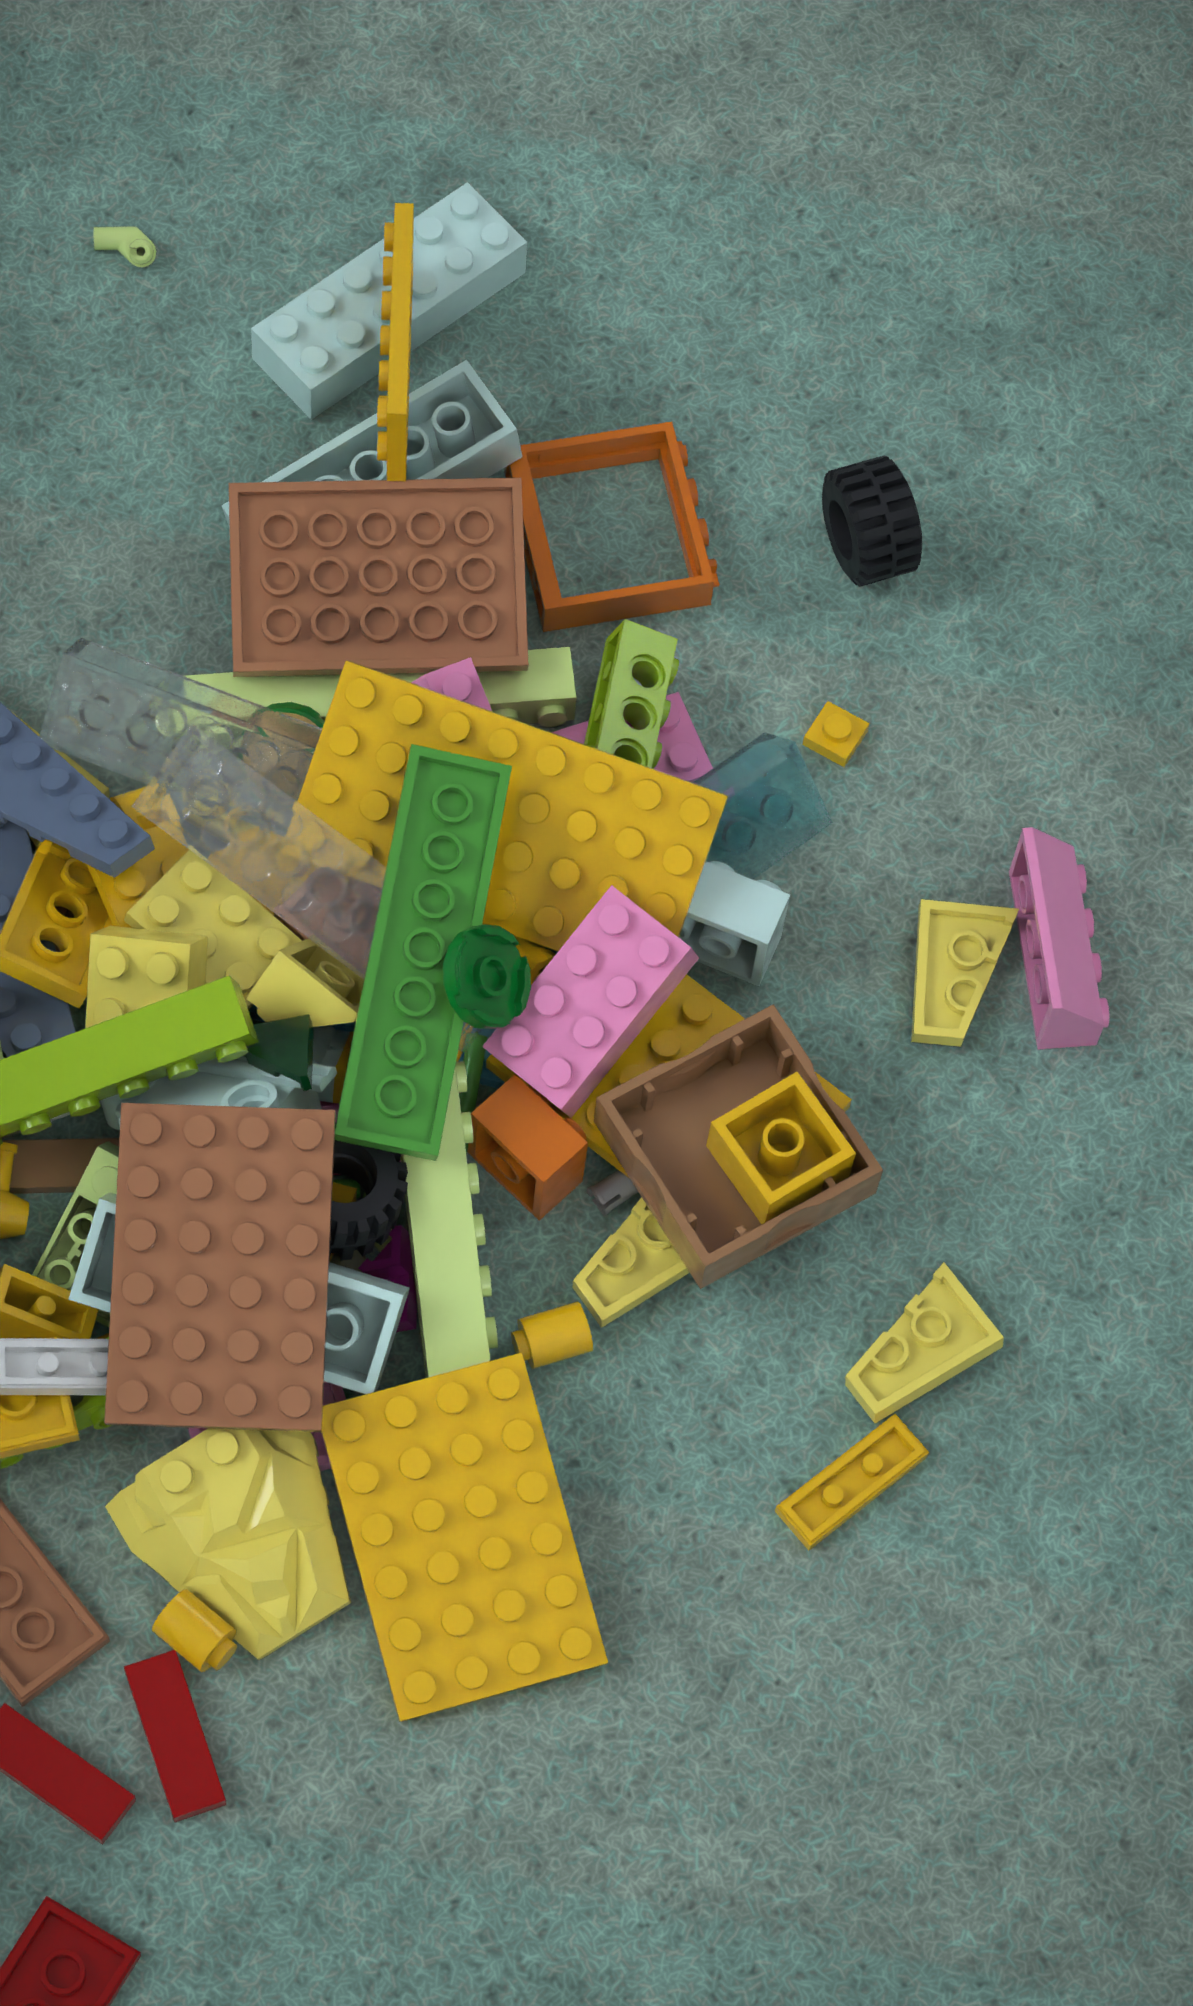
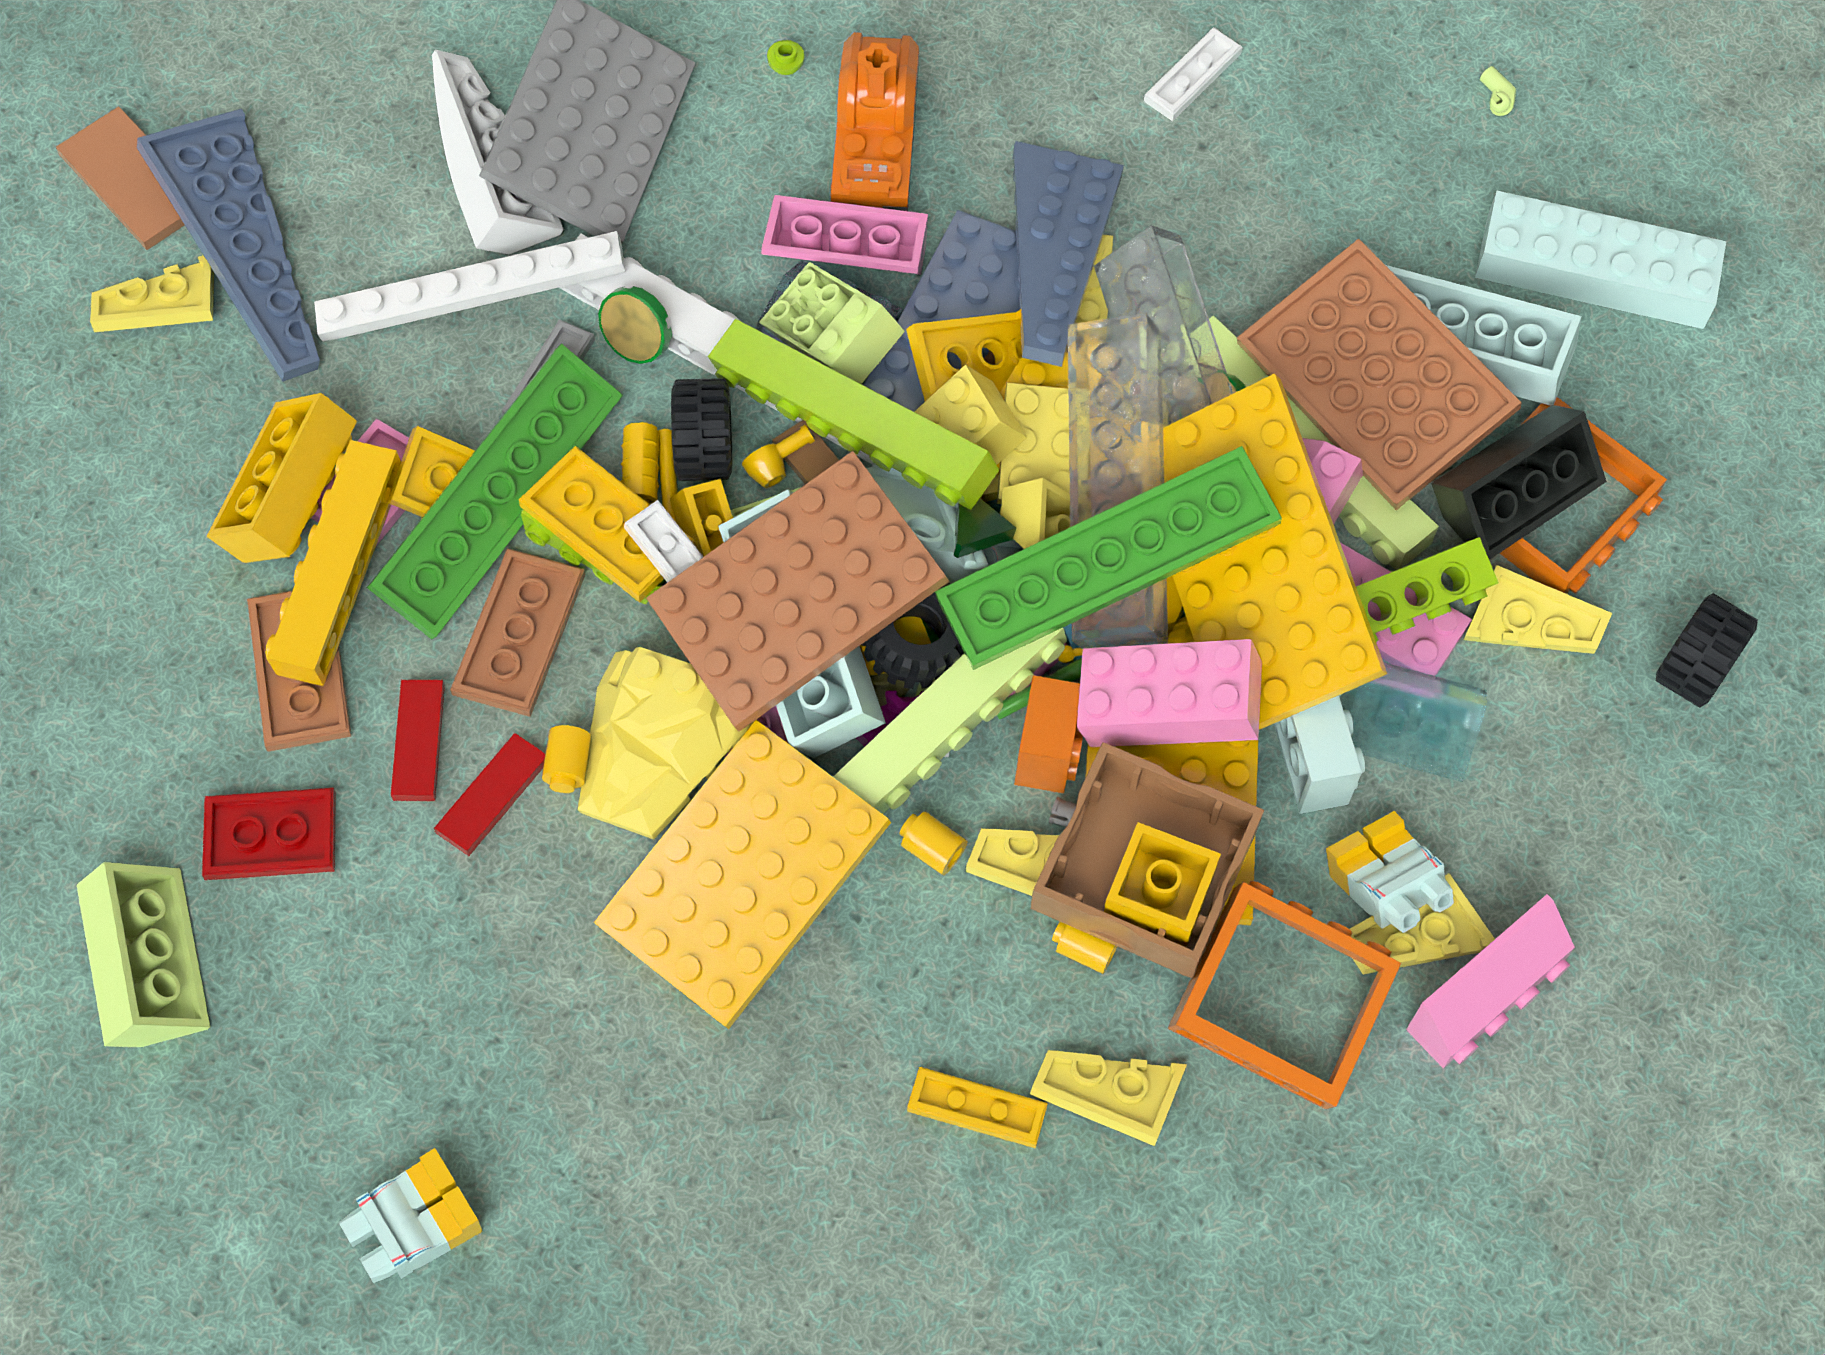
camera: 60 degrees right, 0 degrees up
(396, 342) = (1548, 262): yellow plate -> none
(486, 977) = (1120, 607): green tile -> none
(583, 539) = (1521, 479): none -> pearl dark grey slope
(722, 634) = (1536, 617): none -> light yellow wing
(764, 1272) = (1083, 947): none -> yellow brick
(835, 734) = (1531, 740): yellow plate -> none
(891, 948) = (1389, 873): none -> light aqua hips
(893, 1197) = (1246, 1054): none -> orange window

